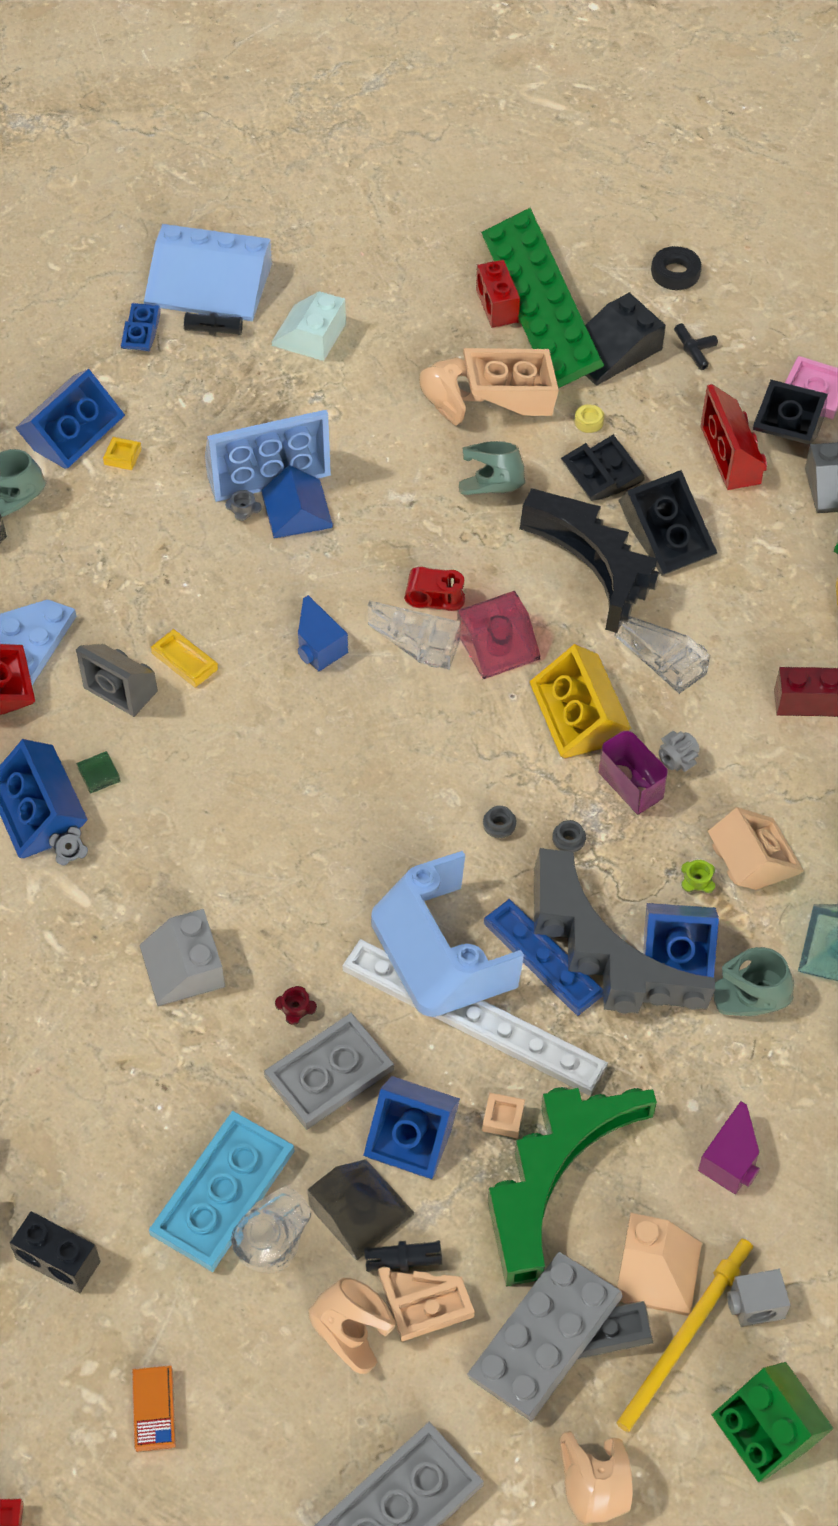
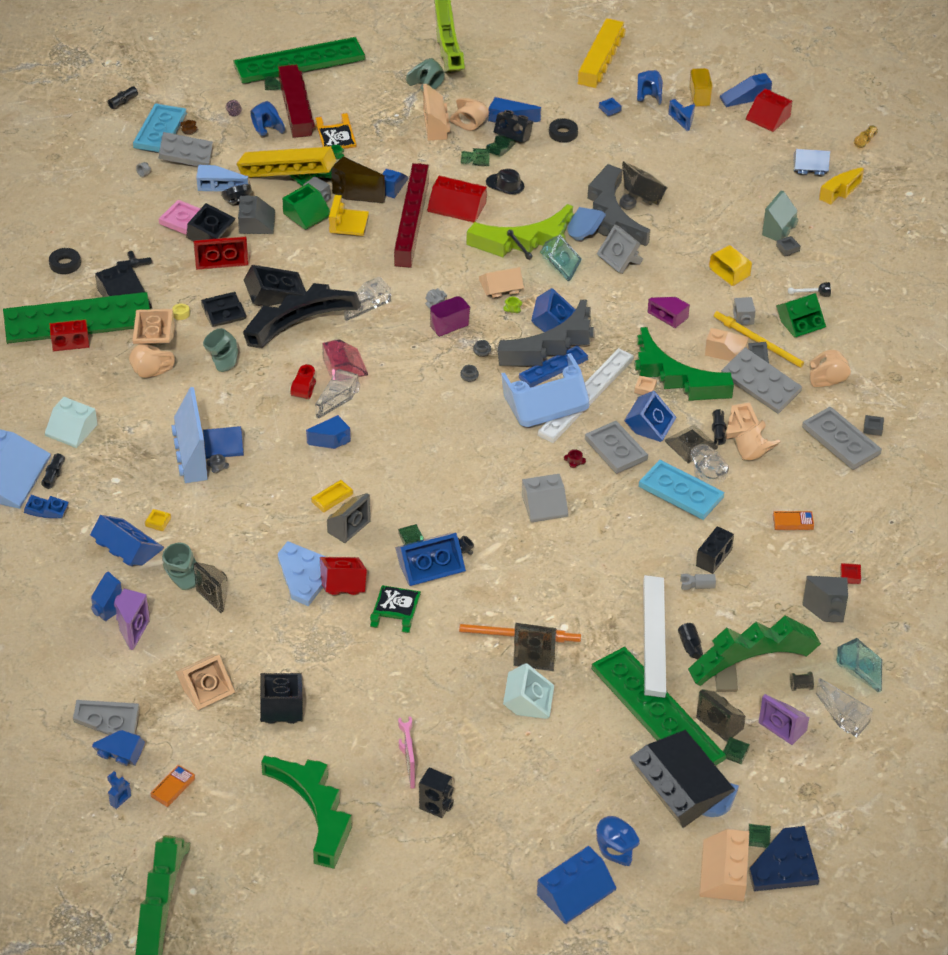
camera: 85 degrees left, 10 degrees down
(578, 702) = (397, 334): yellow slope -> none
(758, 988) = (582, 287): sand green helmet -> none

